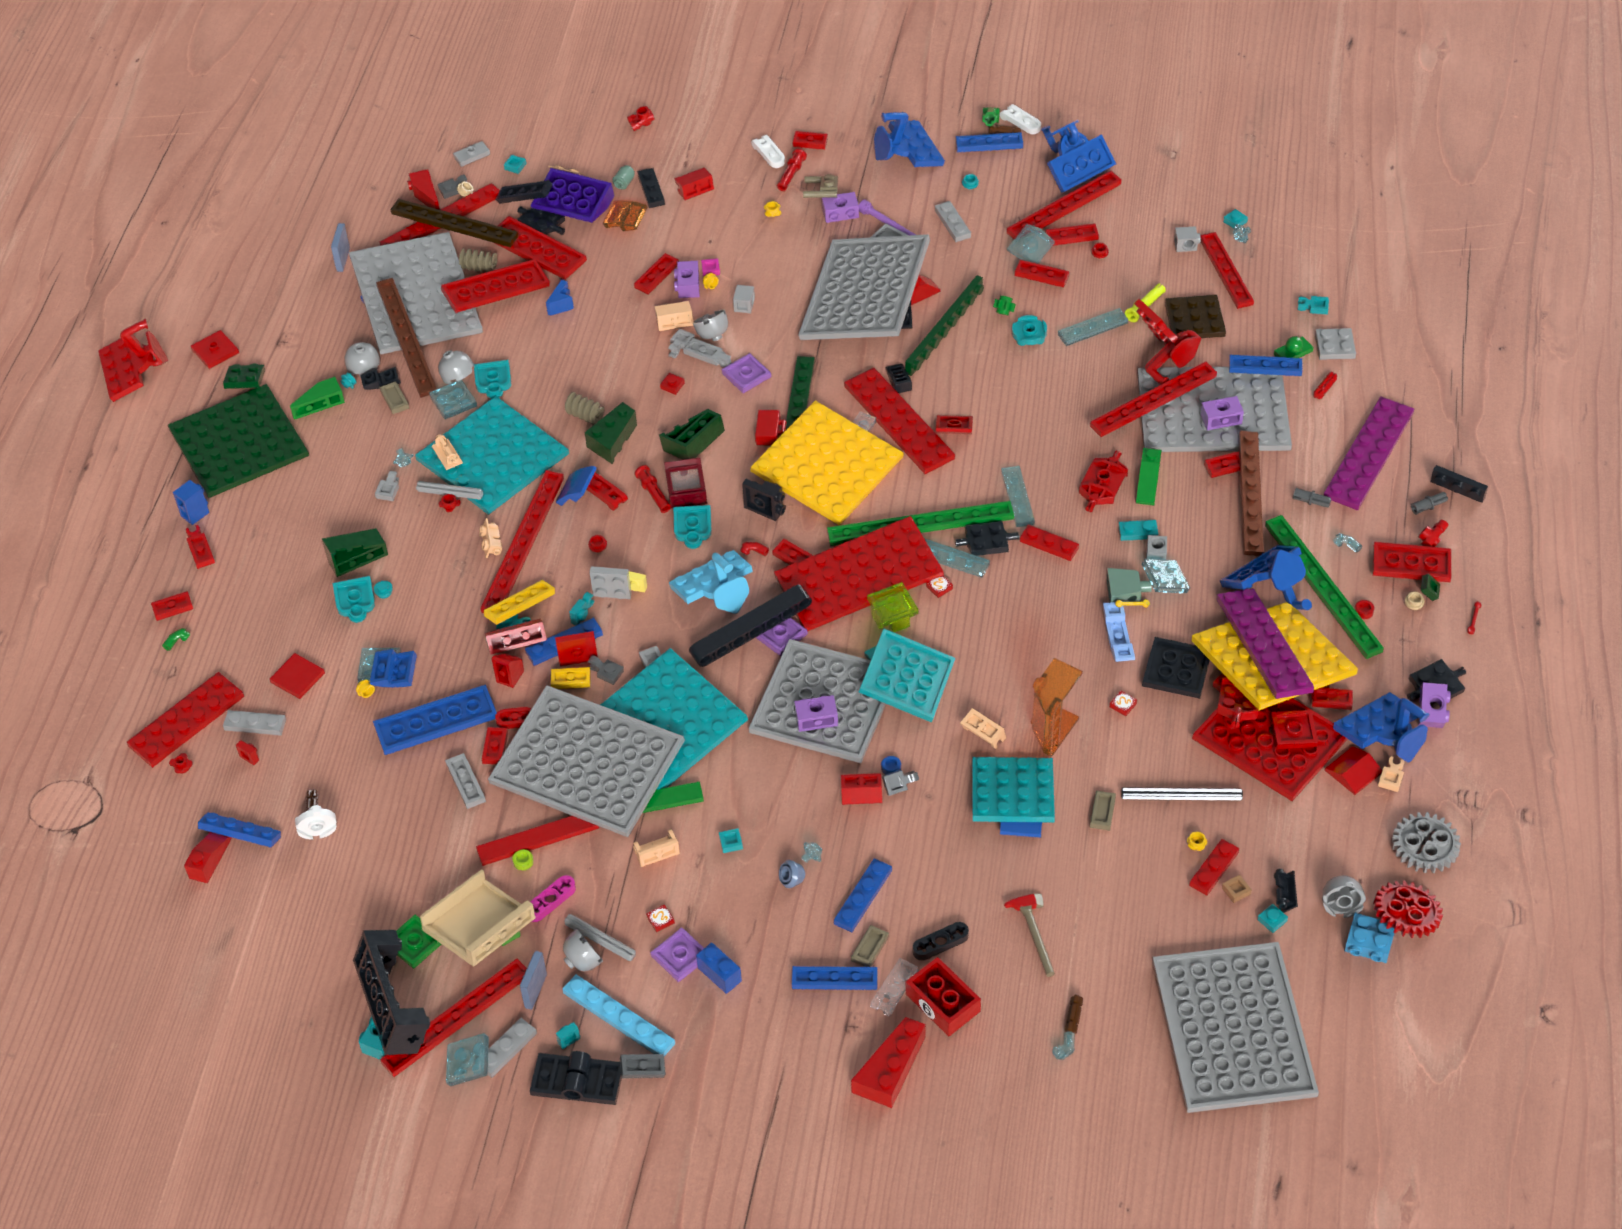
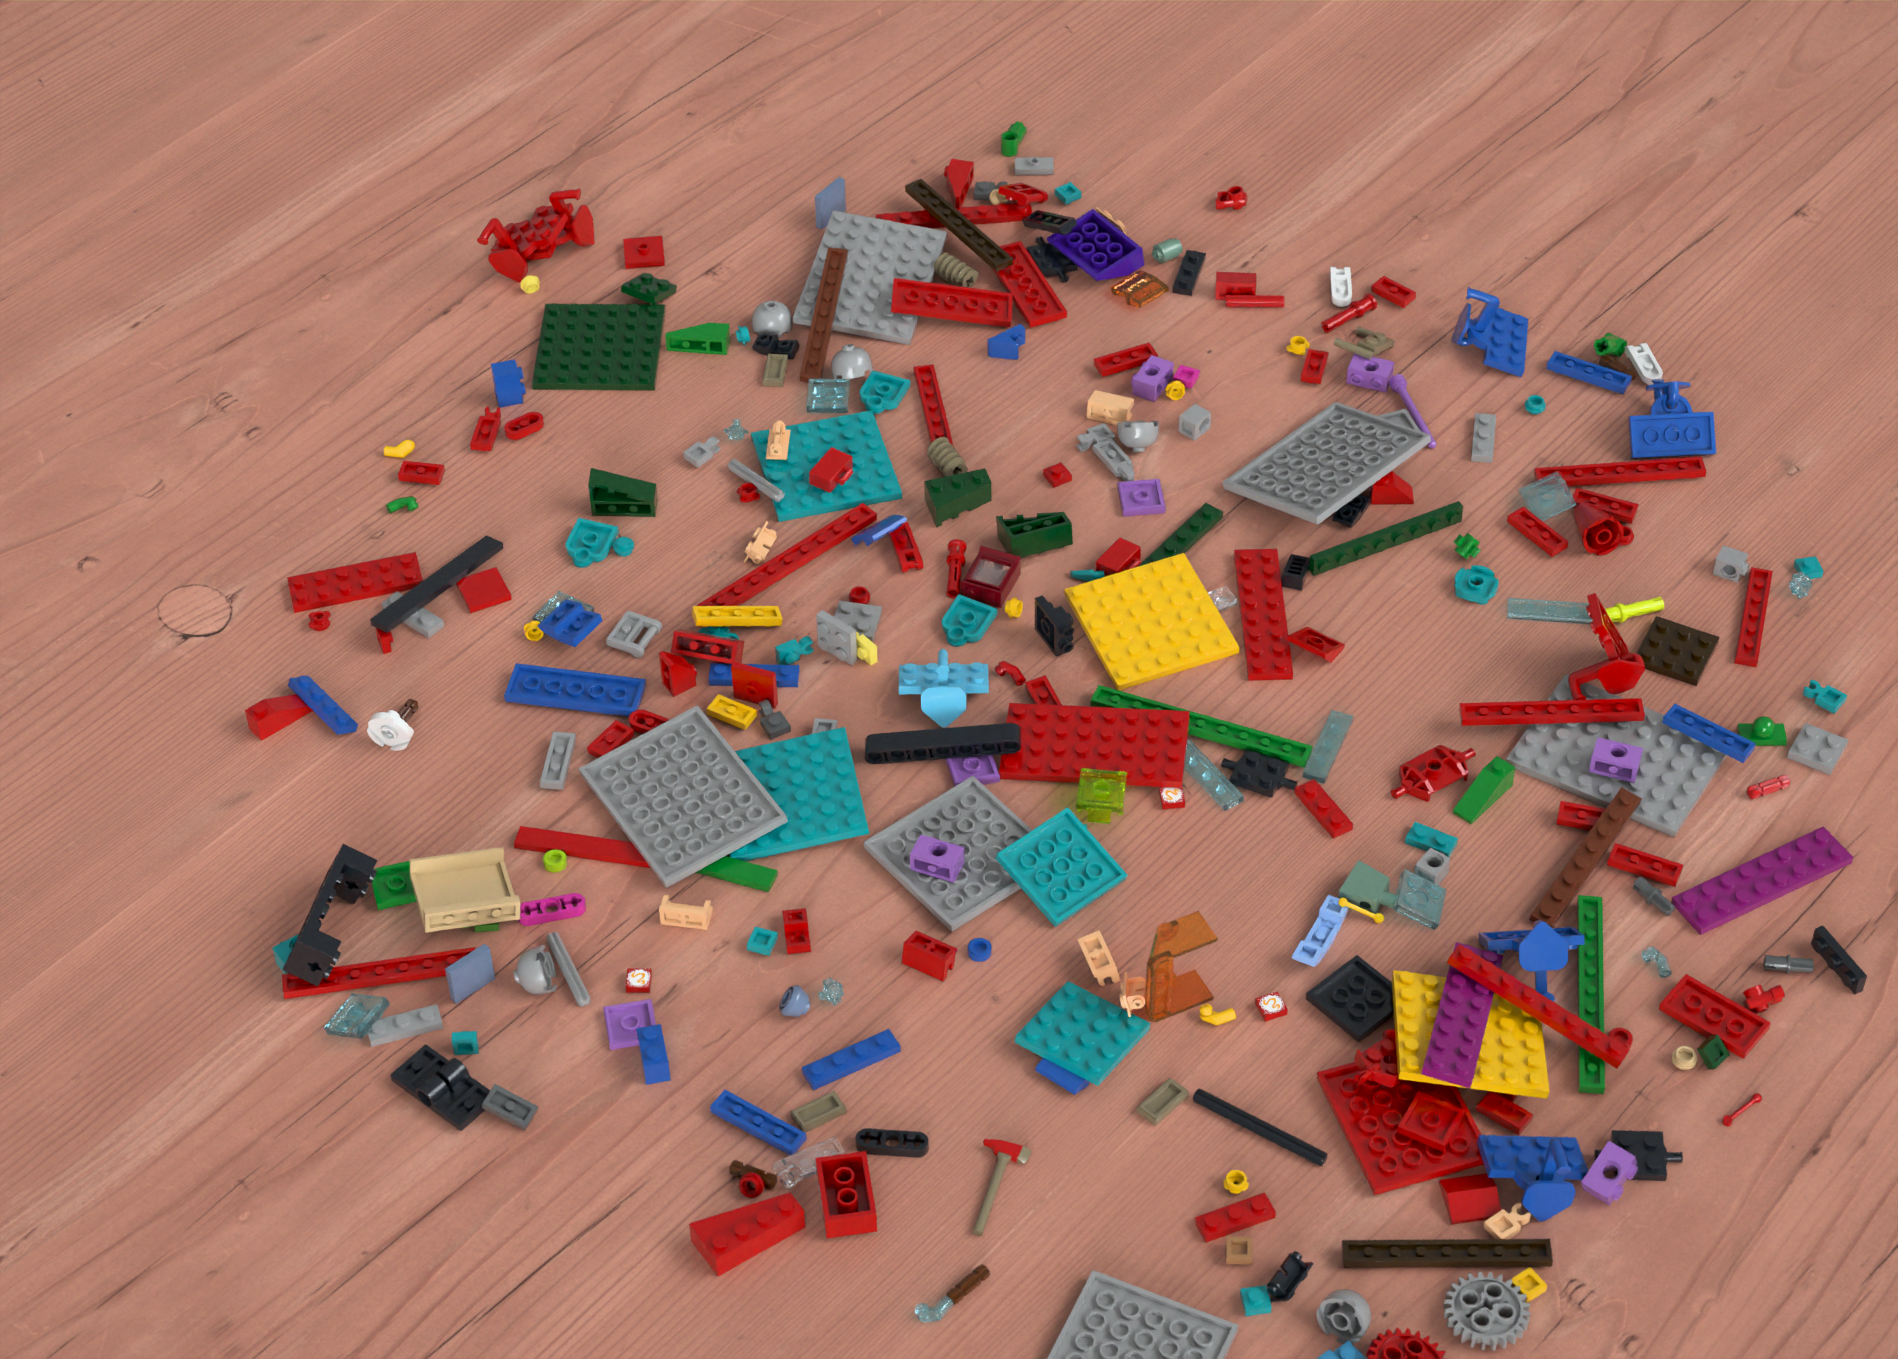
camera: 30 degrees right, 5 degrees down
(113, 382) = (519, 241): none -> red plate
(140, 595) = (400, 450): none -> yellow arm
(142, 414) = (530, 284): none -> light yellow plate
(225, 532) = (524, 425): none -> red plate
(259, 689) = (436, 584): none -> black tile
(440, 139) = (1012, 138): none -> green piece
(440, 654) = (628, 630): none -> light grey plate
(483, 177) = (1023, 193): none -> red plate
(505, 456) = (831, 470): none -> red piece
(537, 372) = (932, 402): none -> red tile
(609, 558) = (860, 617): none -> light grey plate
(618, 1016) = (528, 1051): medium azure plate -> none
(715, 189) = (1254, 301): none -> red axle
(719, 498) = (1014, 607): none -> yellow plate
(748, 820) = (796, 931): none -> red slope
(752, 449) = (1087, 575): none -> teal bar
(797, 220) = (1314, 366): none -> red plate
(860, 1018) = (737, 1169): none -> reddish brown axle
(866, 1032) = (745, 1187): none -> red plate
(896, 781) = (969, 966): plate -> none
(1029, 741) = (1132, 993): none -> light nougat hinge
(1081, 252) = (1597, 529): none -> red cone
(1091, 731) = (1216, 1018): none -> yellow arm
(1290, 478) = (1645, 865): none -> red plate
(1305, 611) = (1538, 1006): none -> red plate
(1369, 817) = (1447, 1253): none -> dark brown plate
(1438, 807) = (1530, 1284): none -> yellow plate

